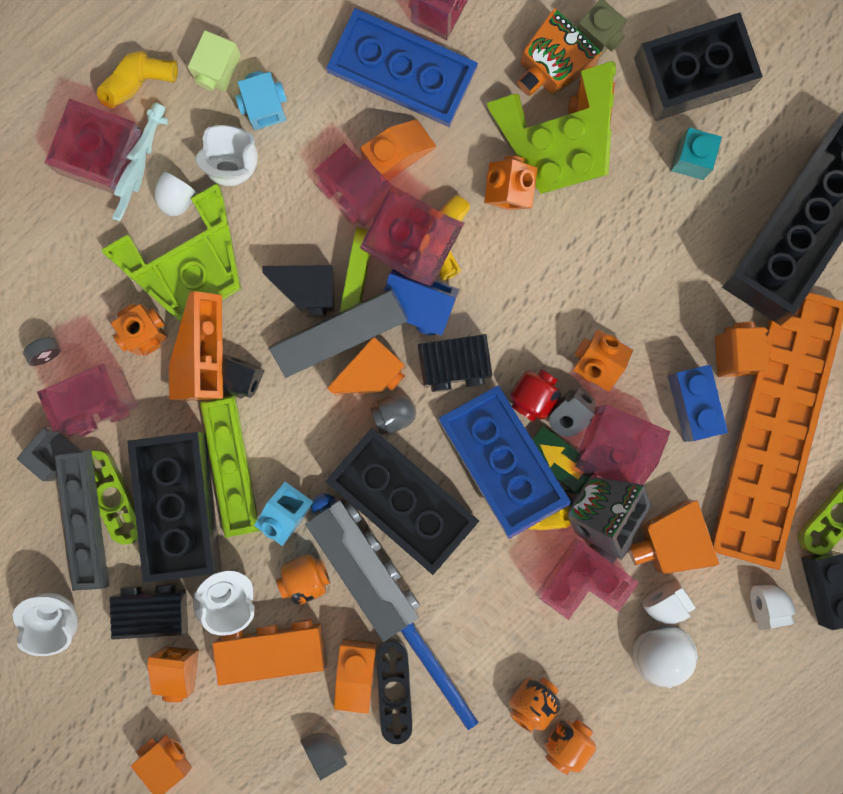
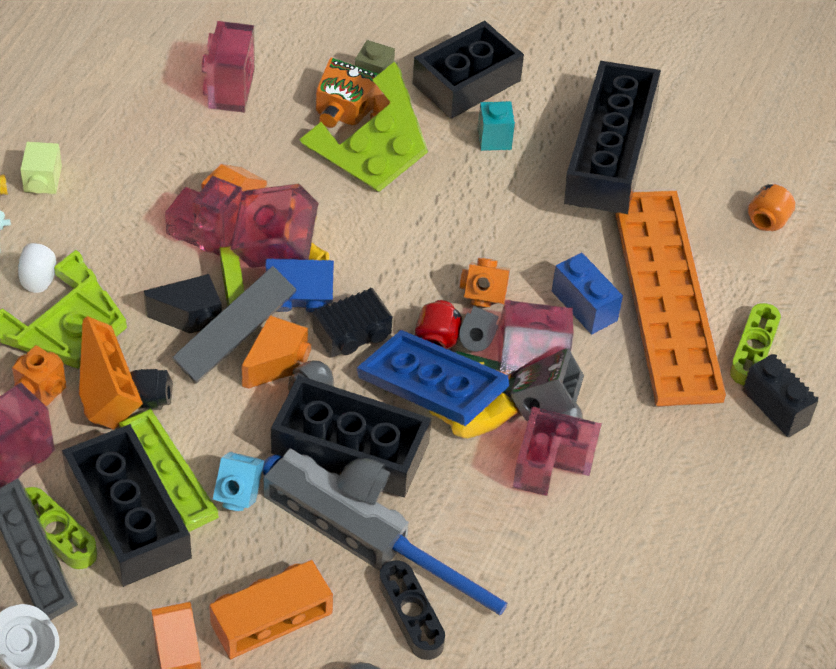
camera: 25 degrees left, 35 degrees down
(148, 613) = (126, 612): black brick -> none
(224, 603) = (206, 567): white helmet -> none
(227, 155) = (80, 225): white helmet -> none
(261, 99) = (95, 184): medium azure brick -> none
(303, 579) = (279, 535): orange head -> none
(355, 676) = (366, 602): orange slope -> none
(391, 566) = (364, 479): none -> dark grey piece
(402, 67) = (213, 134): blue plate -> none
(510, 184) = (346, 183): orange brick -> none
(534, 704) = (555, 571): orange head -> none
(570, 746) = (607, 598): orange head -> none
(665, 656) = (659, 495): white helmet -> none
(669, 603) = (643, 452): white piece -> none
(676, 540) = (624, 400): orange torso -> none
(742, 350) = (605, 238): orange brick -> none
(771, 606) = (735, 429): white piece -> none

